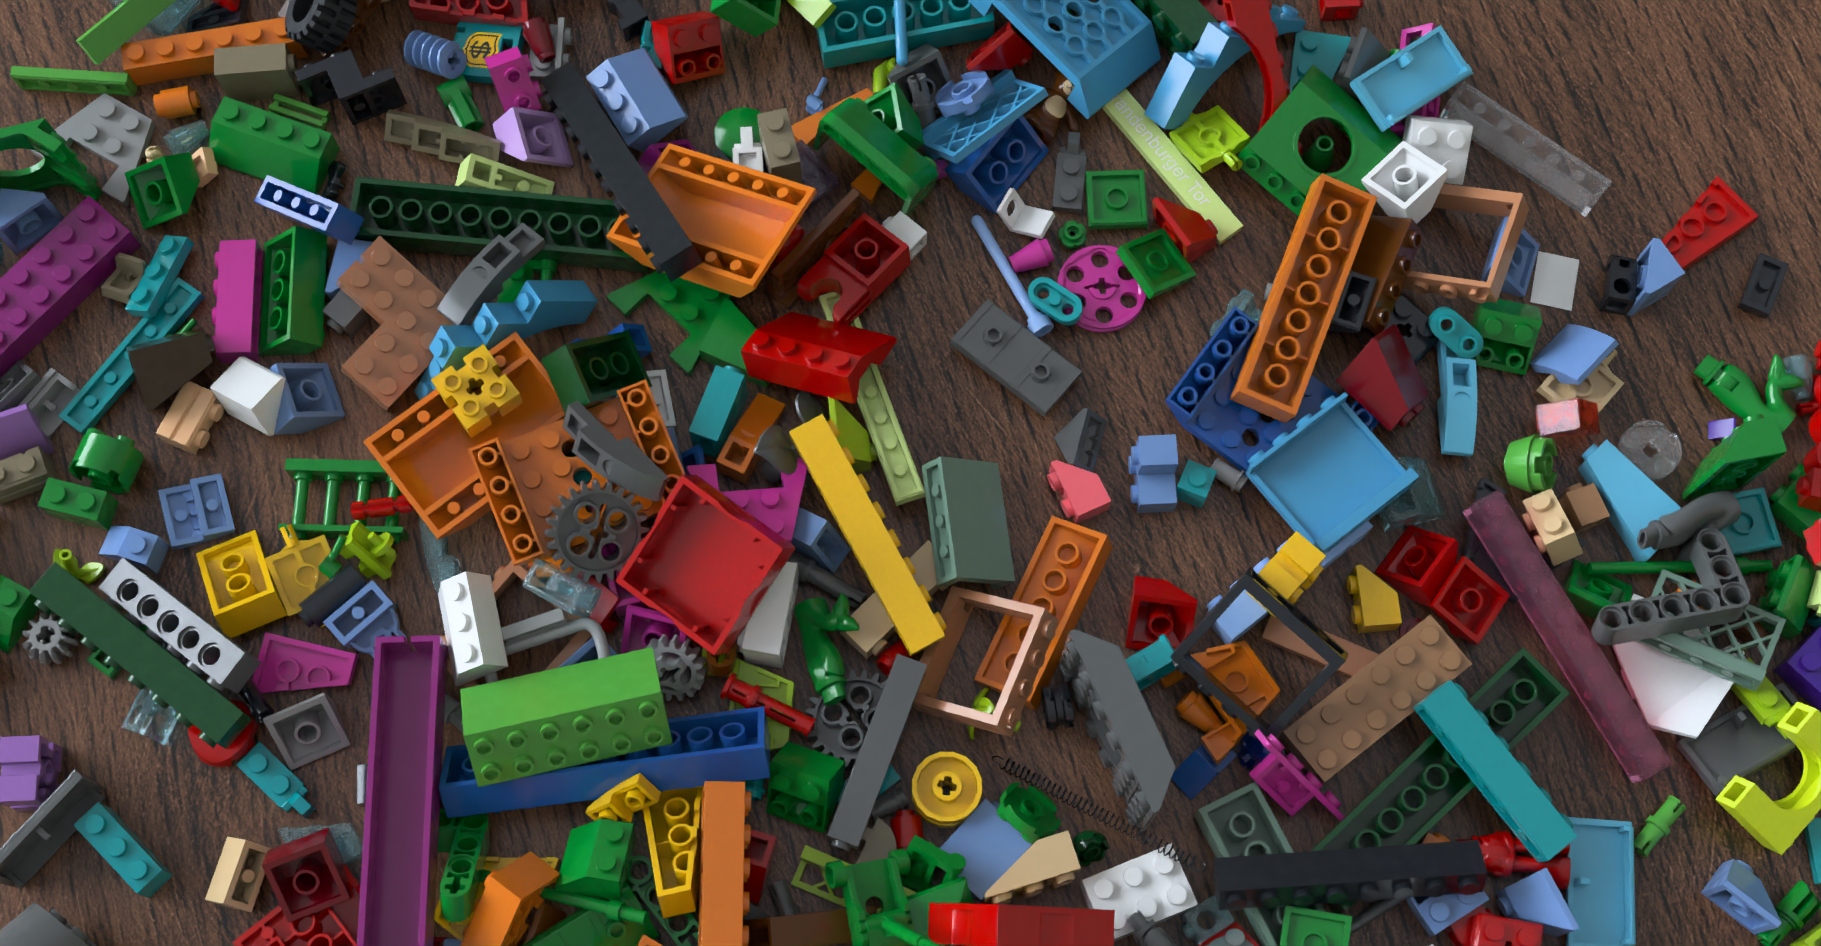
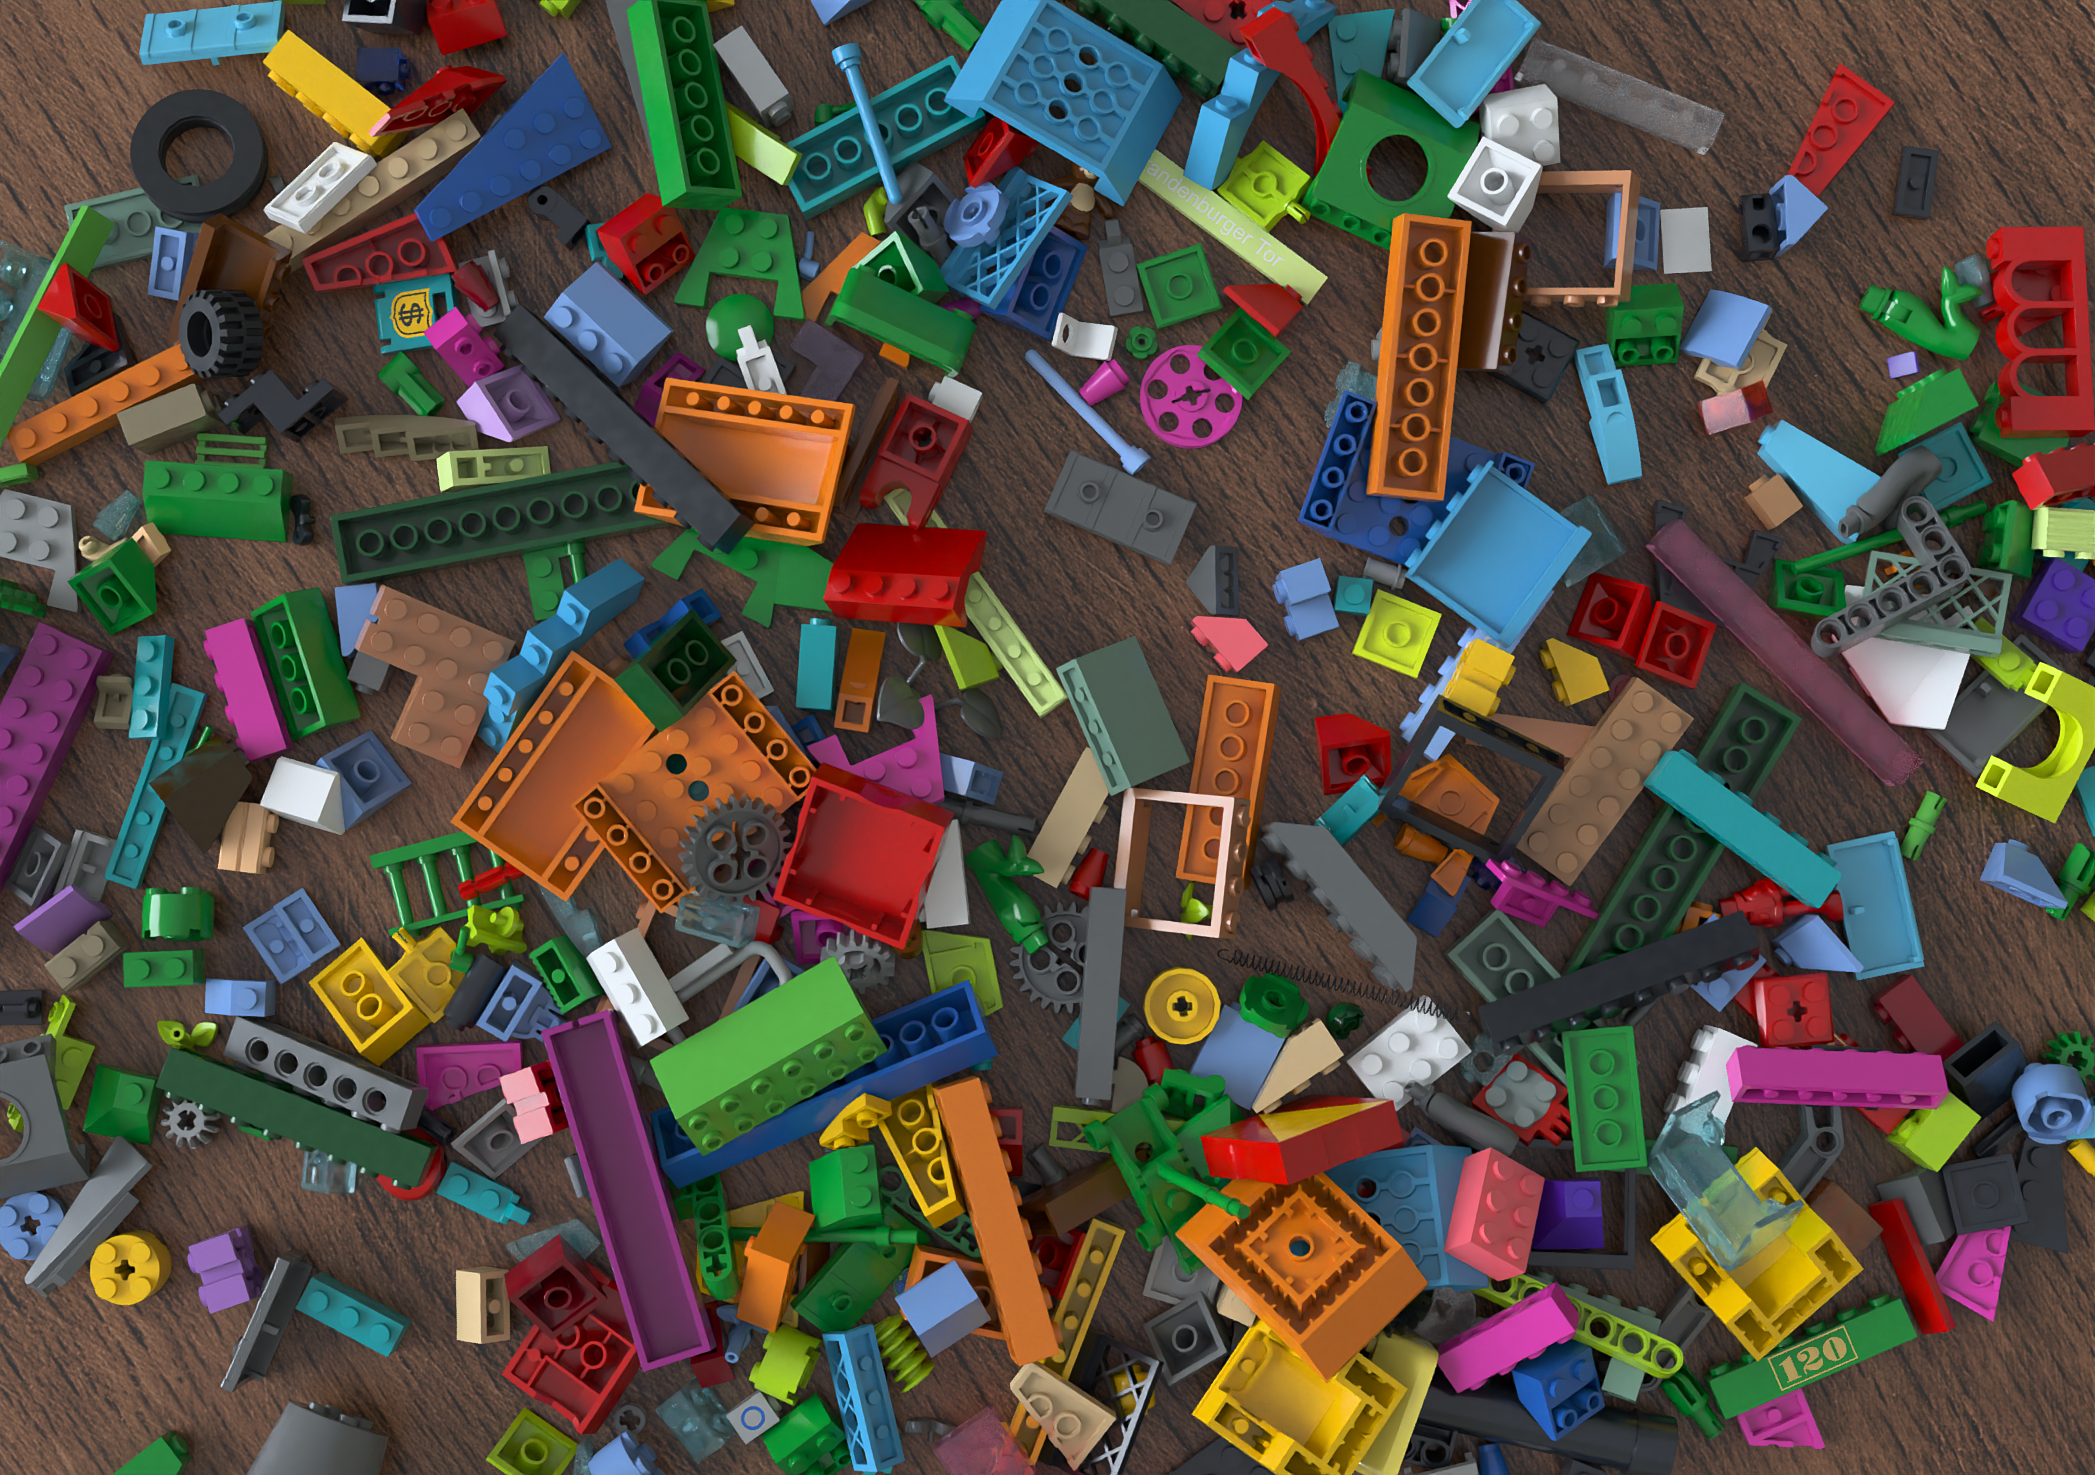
camera: 15 degrees left, 15 degrees up
(176, 102) = (91, 477): orange brick -> none
(309, 209) = (292, 571): blue brick -> none
(350, 702) = (535, 1101): none -> brick
(416, 604) = (566, 973): none -> green brick
(434, 54) = (362, 338): medium blue piece -> none
(473, 409) = (577, 732): yellow brick -> none
(487, 272) = (519, 591): dark grey slope -> none
(613, 459) = (735, 773): dark grey slope -> none
(754, 694) = (953, 971): red pin -> none
(767, 74) = (747, 247): none -> green wing
(779, 145) = (793, 352): dark tan brick -> none
(804, 786) = (1034, 1044): green slope -> none
(867, 535) = (1021, 767): yellow brick -> none
(1056, 302) = (1146, 431): teal plate -> none
(1225, 527) = (1396, 633): none -> neon yellow plate
(1320, 154) = (1388, 174): green cone -> none
(1353, 303) = (1474, 349): black slope -> none
(1386, 380) = (1530, 424): dark red slope -> none
(1456, 333) = (1594, 346): teal plate -> none
(1530, 464) = (1706, 470): bright green cone -> none
(1552, 527) = (1745, 538): tan brick -> none
(1660, 439) = (1838, 396): clear plate -> none

